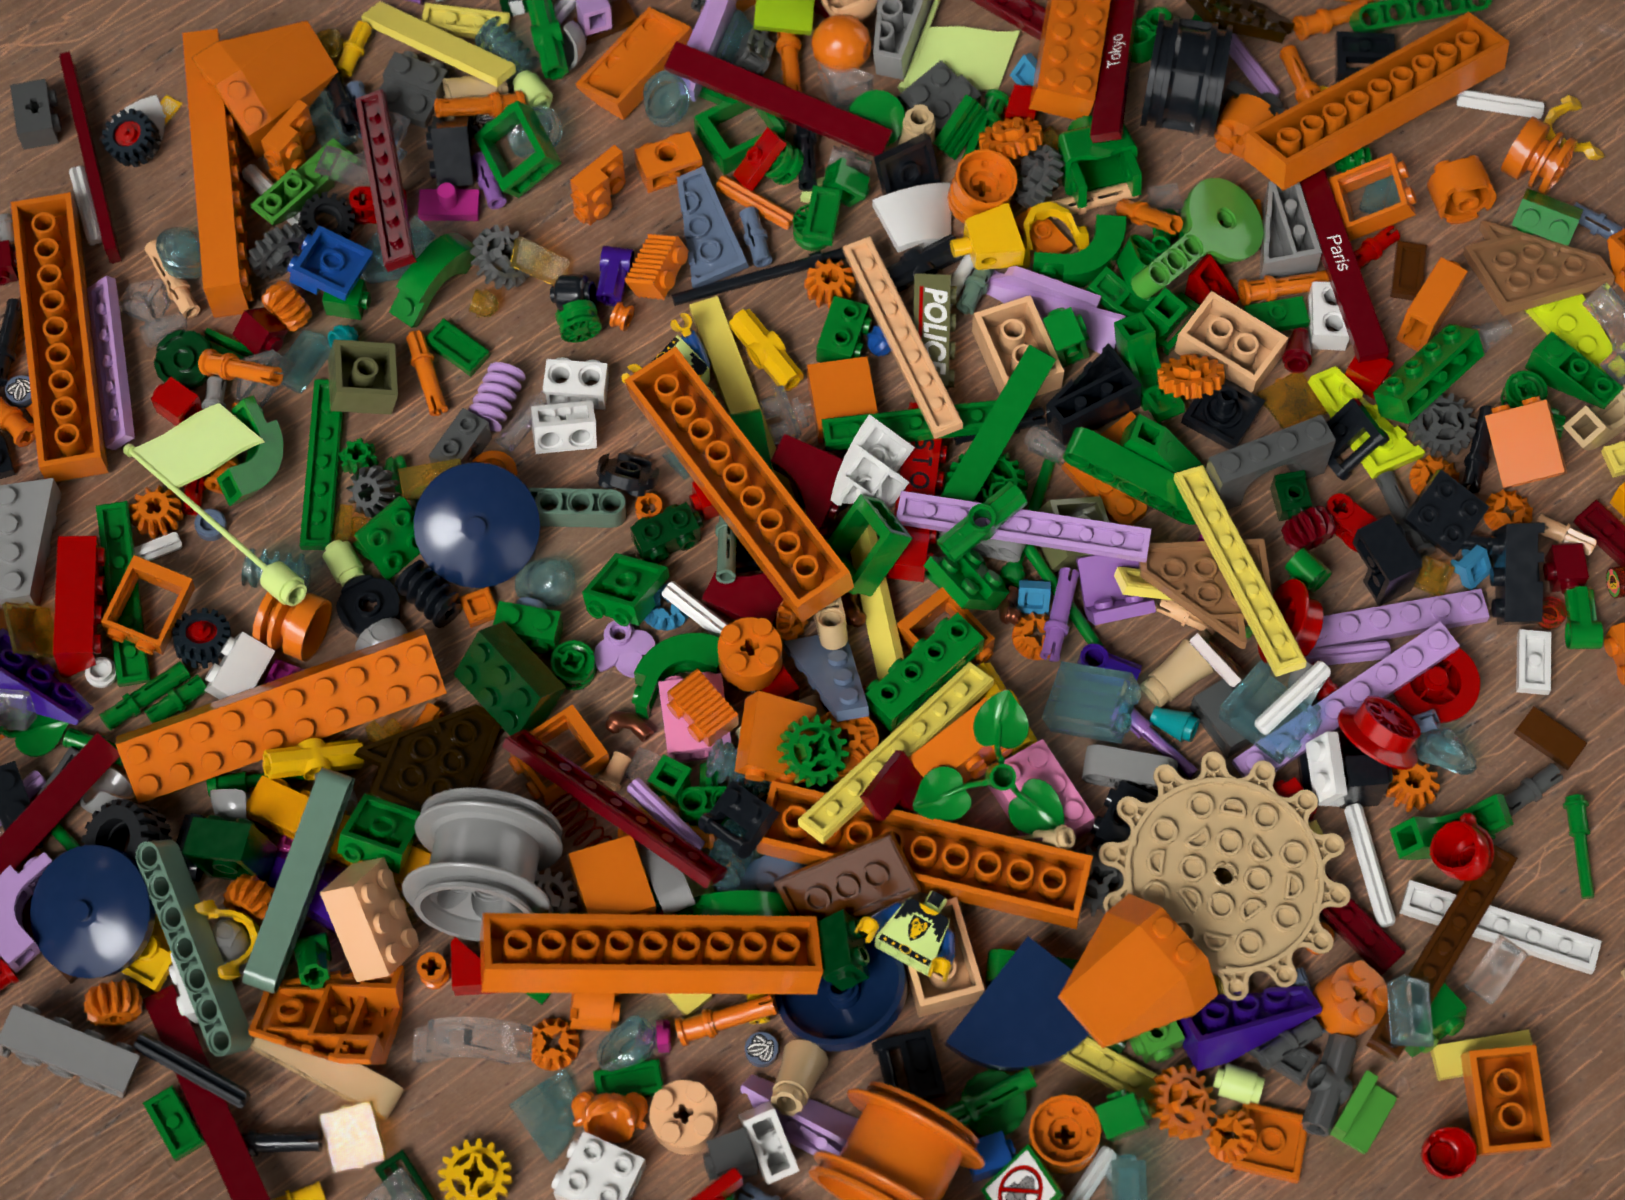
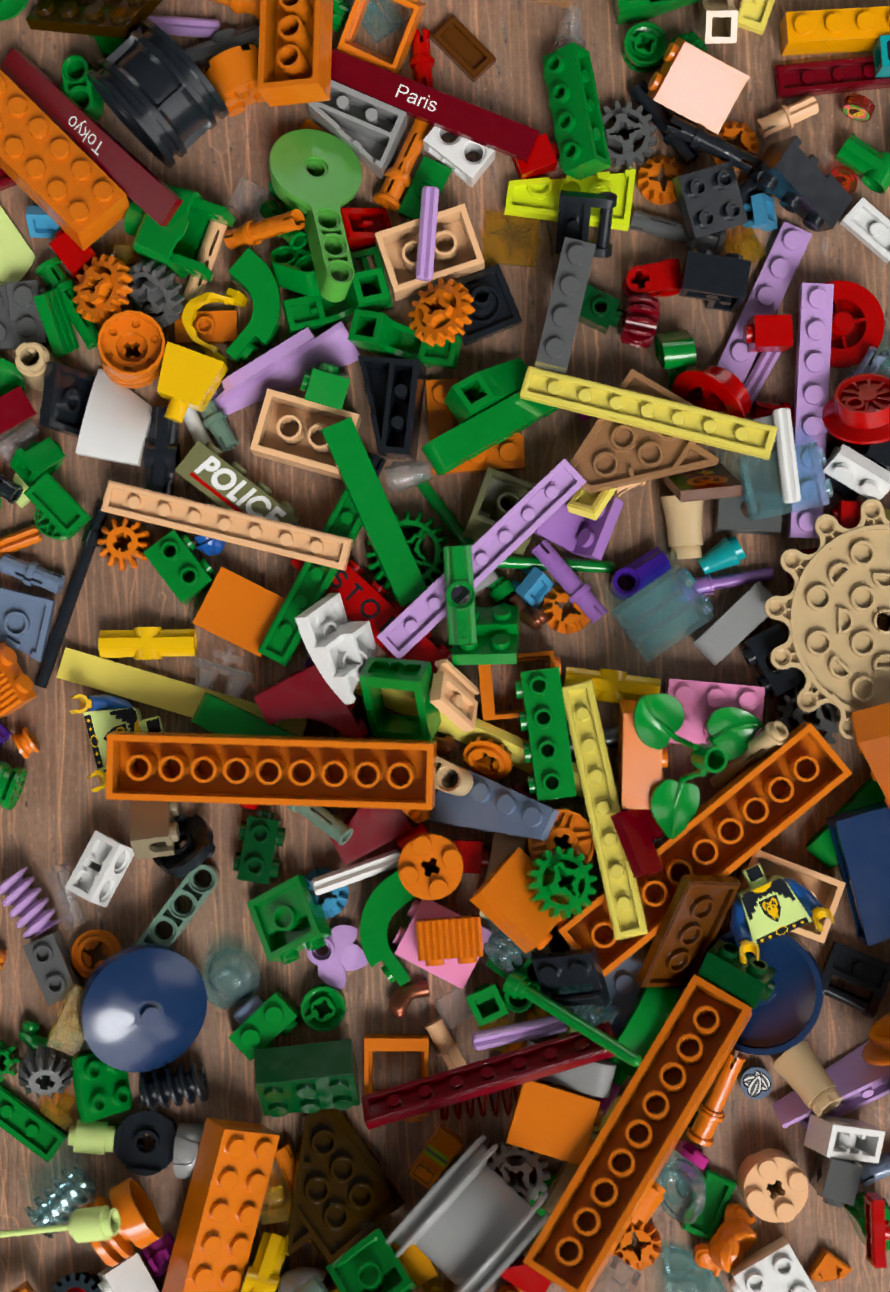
camera: 55 degrees left, 20 degrees up
(479, 606) = (212, 1047): orange tile -> none
(577, 375) = (68, 833): white brick -> none
(627, 438) = (153, 828): none -> dark tan brick
(649, 498) = (227, 836): orange bush -> none
(703, 788) = (519, 987): none -> green piece
(870, 638) = (485, 766): none -> orange gear
(900, 581) = (454, 695): none -> light nougat plate
(1242, 324) = (427, 233): none -> lavender axle
(1298, 352) = (477, 202): dark red cone -> none
(1380, 628) = (768, 333): none -> red brick
(1432, 304) = (517, 57): orange brick -> none
(1490, 484) = (710, 143): none -> black pin
(1565, 567) = (820, 138): dark red brick -> none

